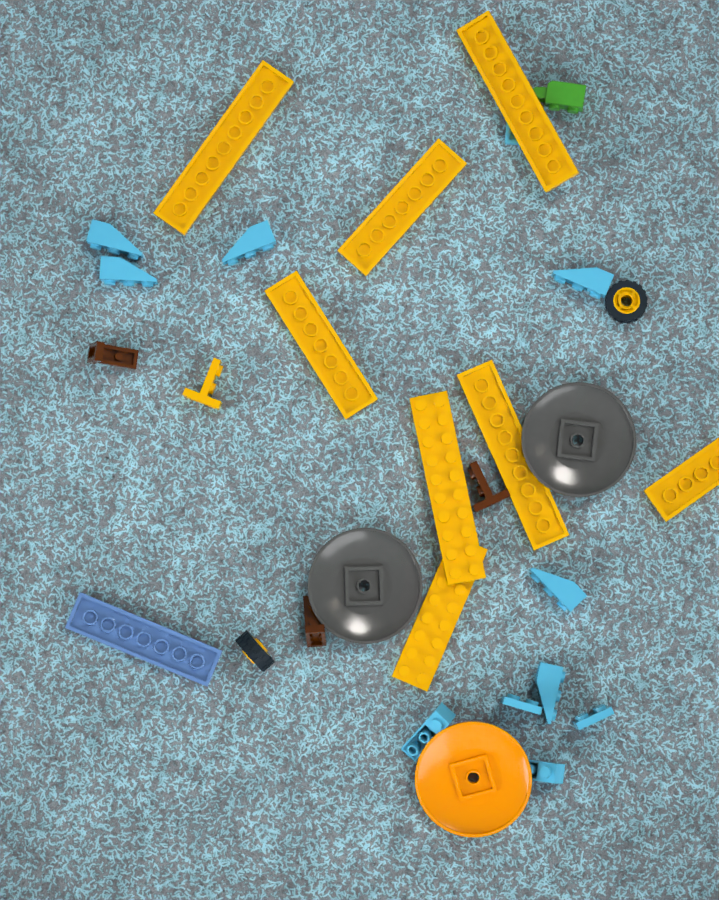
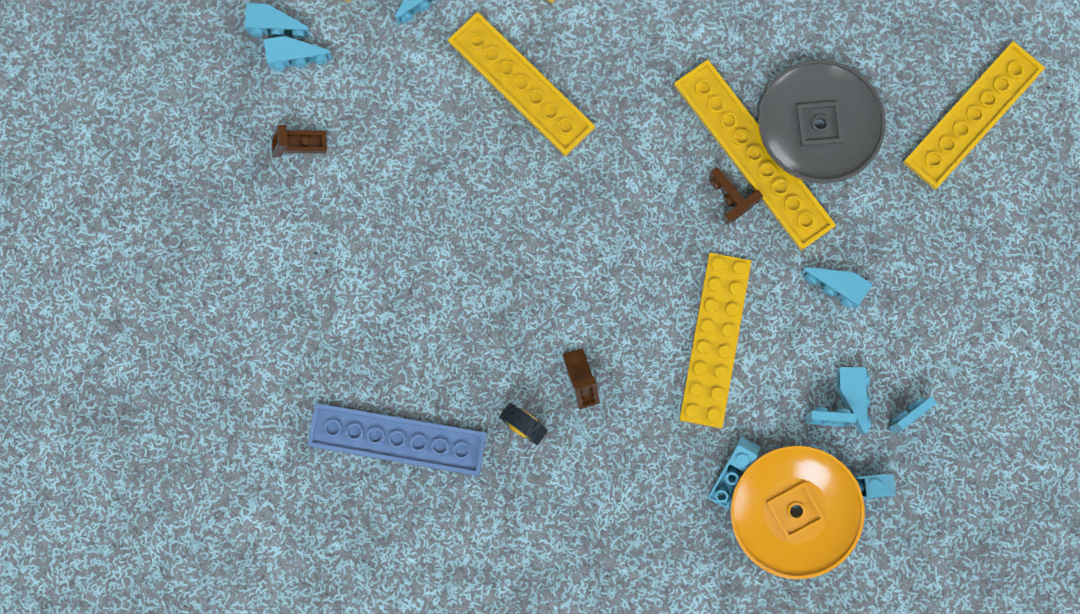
camera: 10 degrees left, 5 degrees down
(208, 387) = (409, 153): yellow bracket -> none
(392, 580) = (657, 319): dark grey dish -> none
(447, 488) = (693, 205): yellow plate -> none

